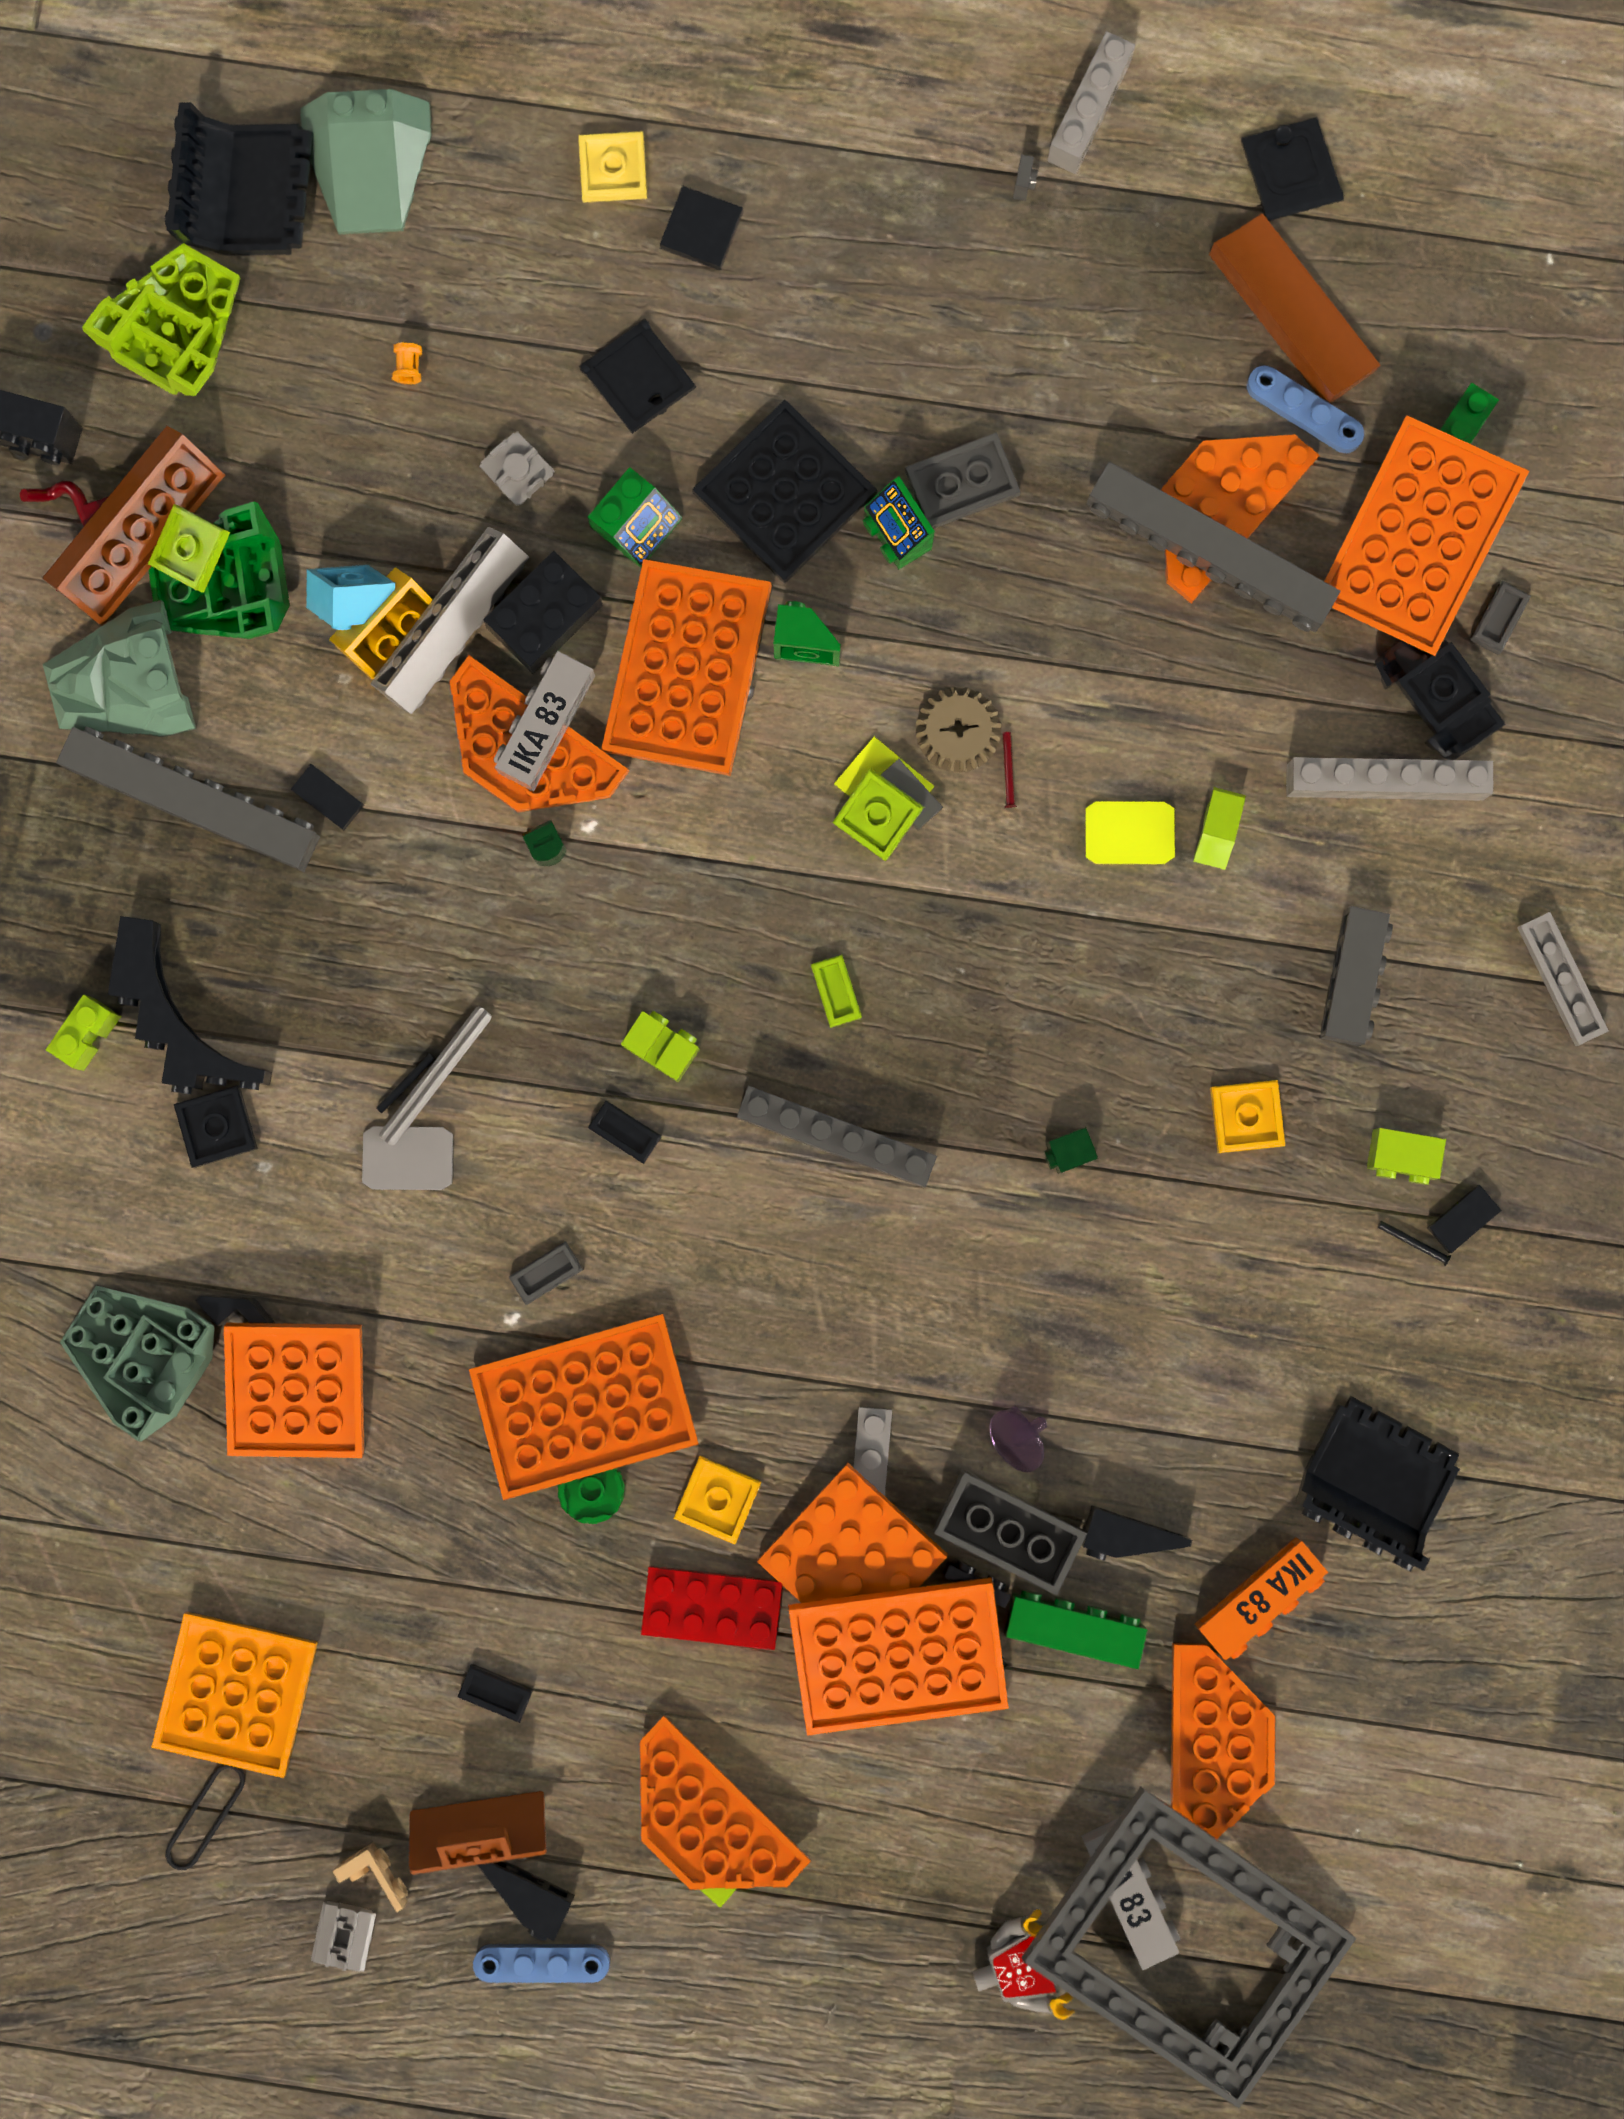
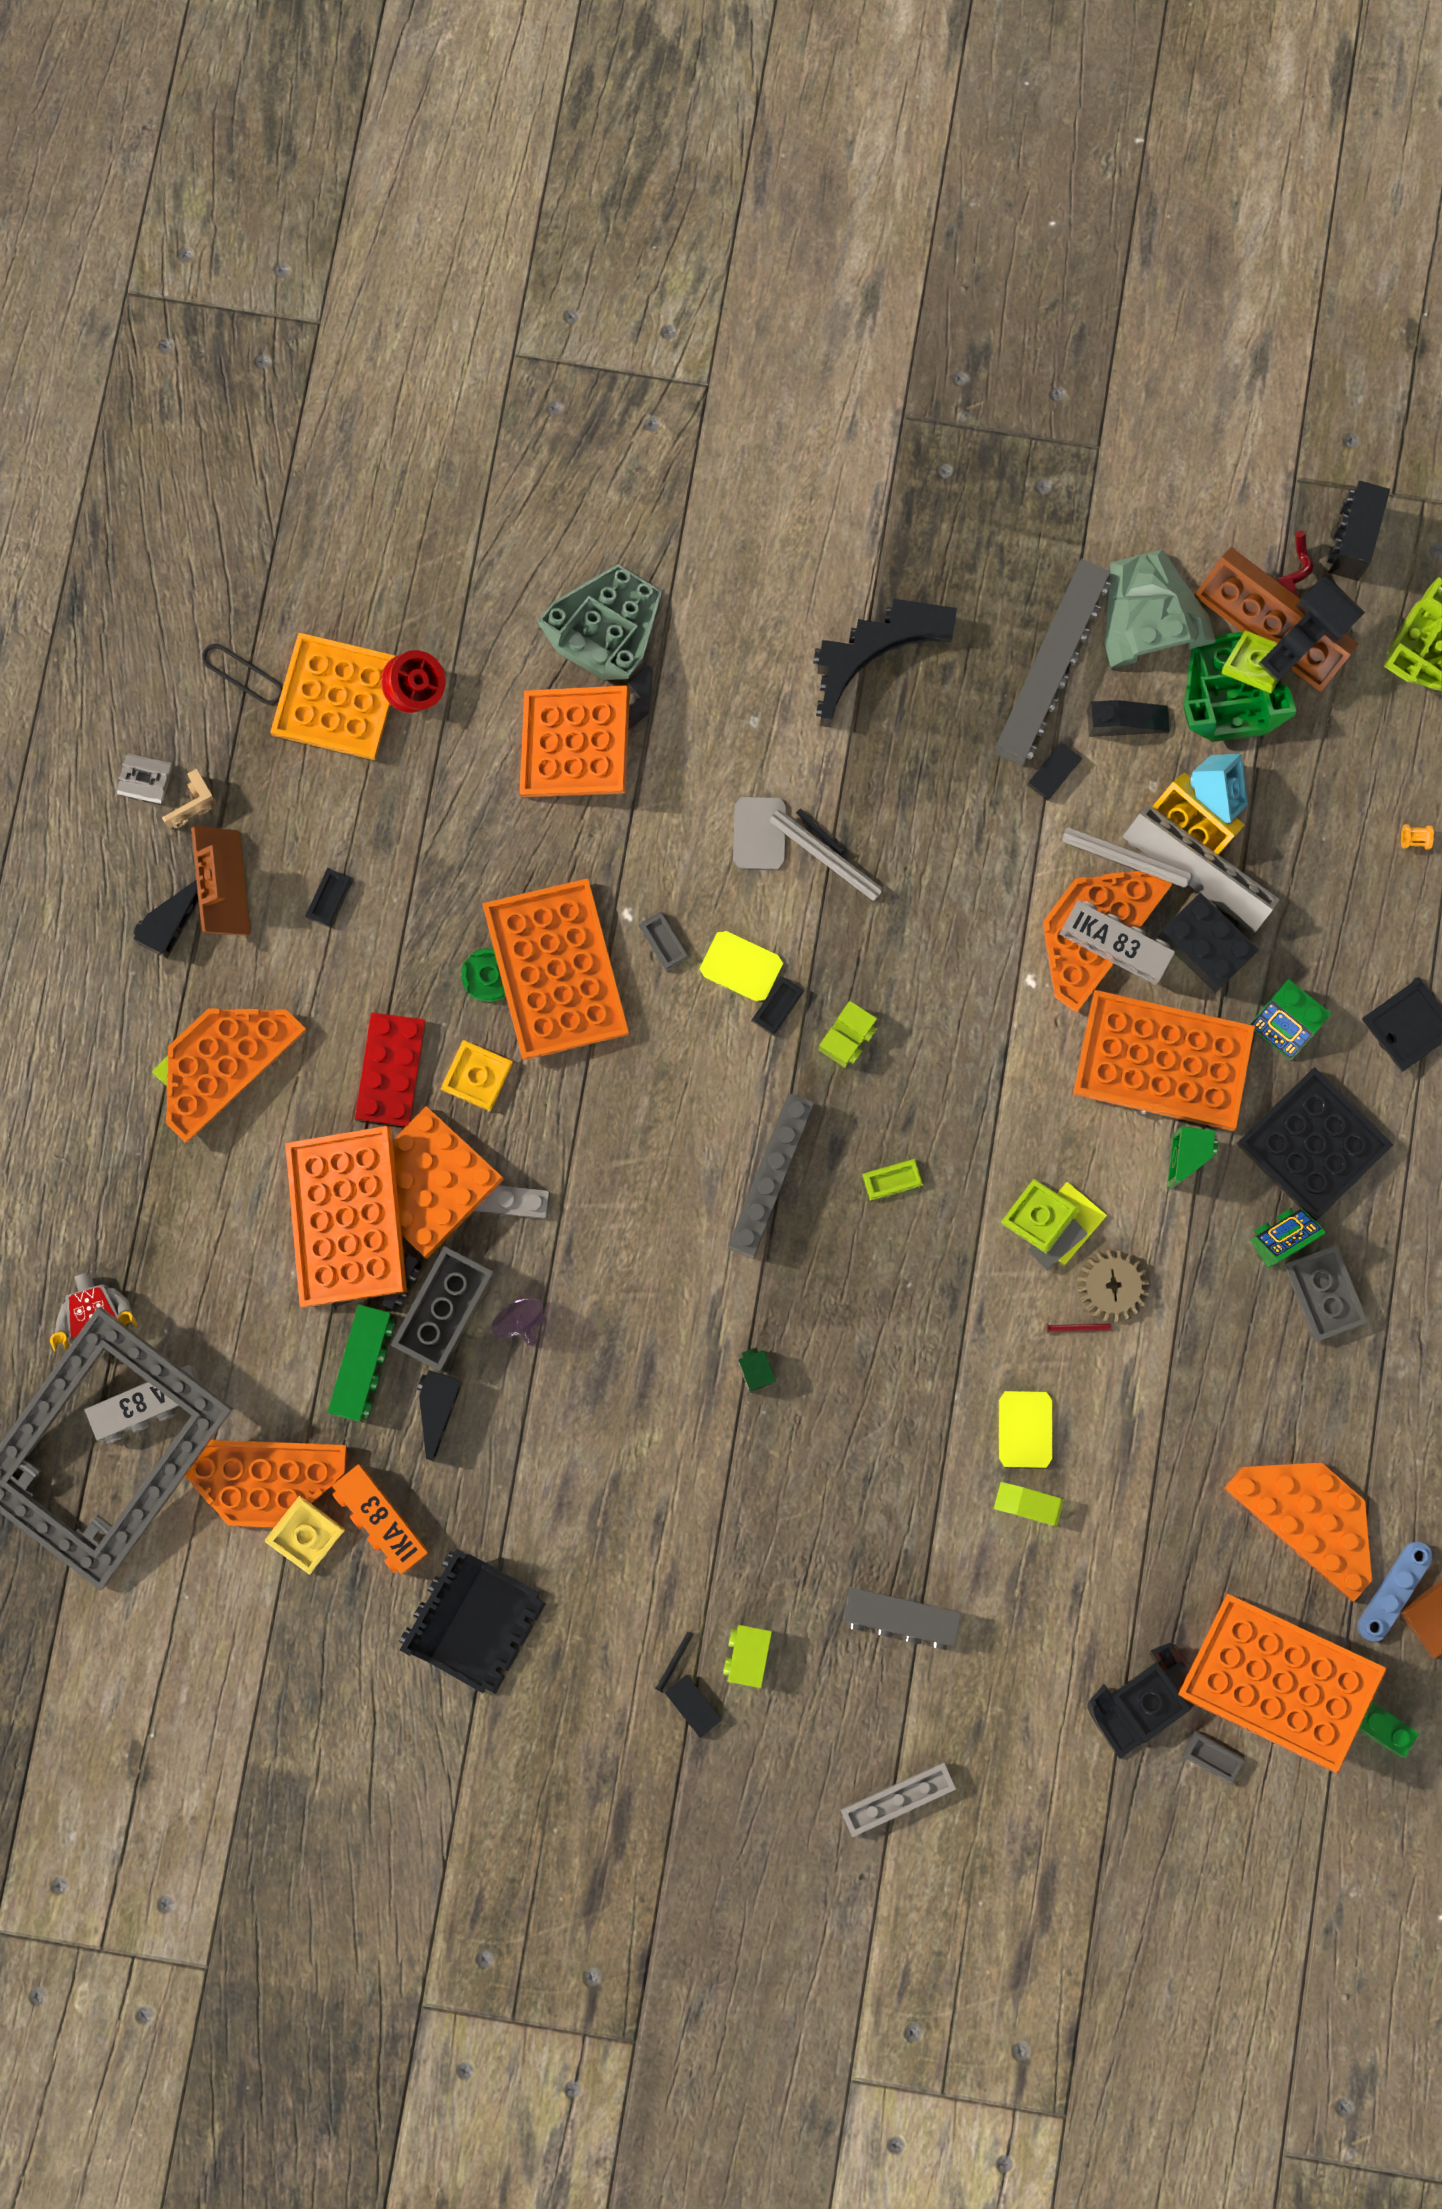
camera: 90 degrees right, 5 degrees down
(79, 1031) = (865, 578): lime brick -> none
(130, 460) = (1326, 613): none -> black plate
(215, 1126) = (787, 683): black tile -> none
(221, 1615) = (413, 681): none -> red wheel
(260, 709) = (1126, 718): none -> black slope
(436, 709) = (1127, 857): none -> light grey axle
(516, 468) = (1330, 924): light grey piece -> none
(541, 1963) = (115, 931): medium blue plate -> none
(545, 844) = (1015, 943): dark green piece -> none
(575, 1177) = (741, 966): none -> neon yellow piece
(1212, 548) = (1269, 1502): dark grey brick -> none
(1247, 1116) = (783, 1522): yellow tile -> none
(1282, 1690) = (304, 1534): none -> light yellow tile
(1389, 778) = (1071, 1652): light grey brick -> none

